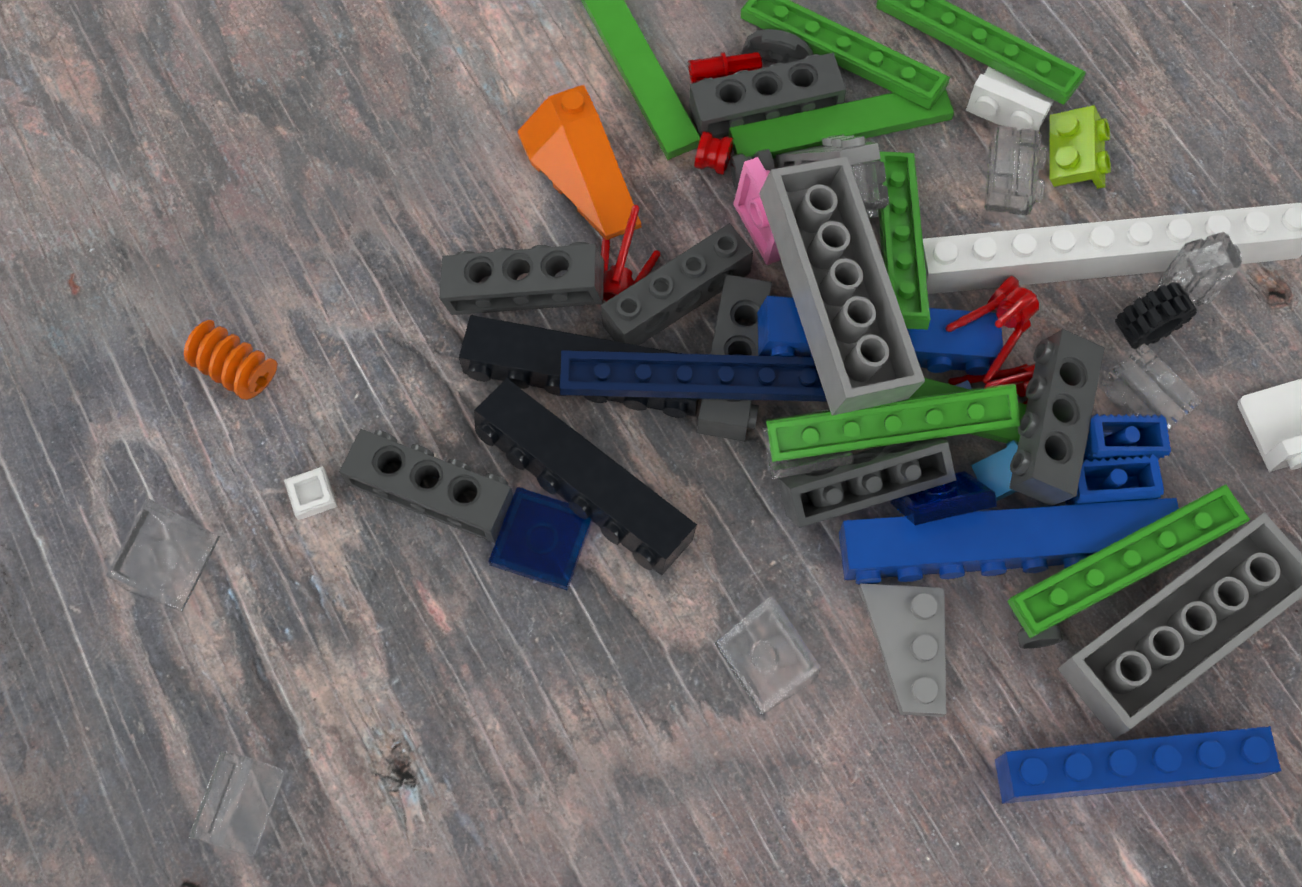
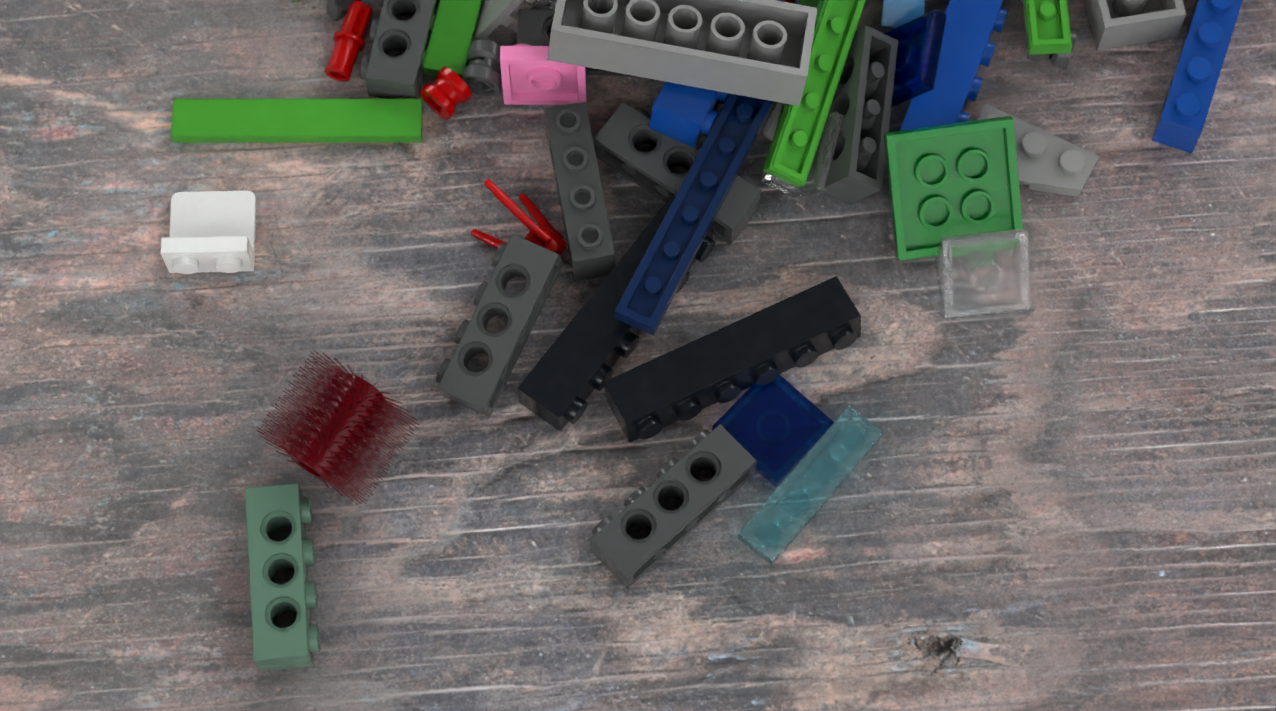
camera: 65 degrees left, 0 degrees up
(221, 216) = (265, 511): none -> sand green brick
(228, 360) = (444, 644): orange piece -> none
(310, 493) = (622, 624): white tile -> none
(367, 193) = (337, 428): none -> dark red piece
(498, 590) = (810, 485): none -> clear light blue plate
(507, 47) = (211, 232): none -> white bracket
(573, 151) = (380, 219): orange wedge -> none
(837, 587) = (952, 183): none -> green plate

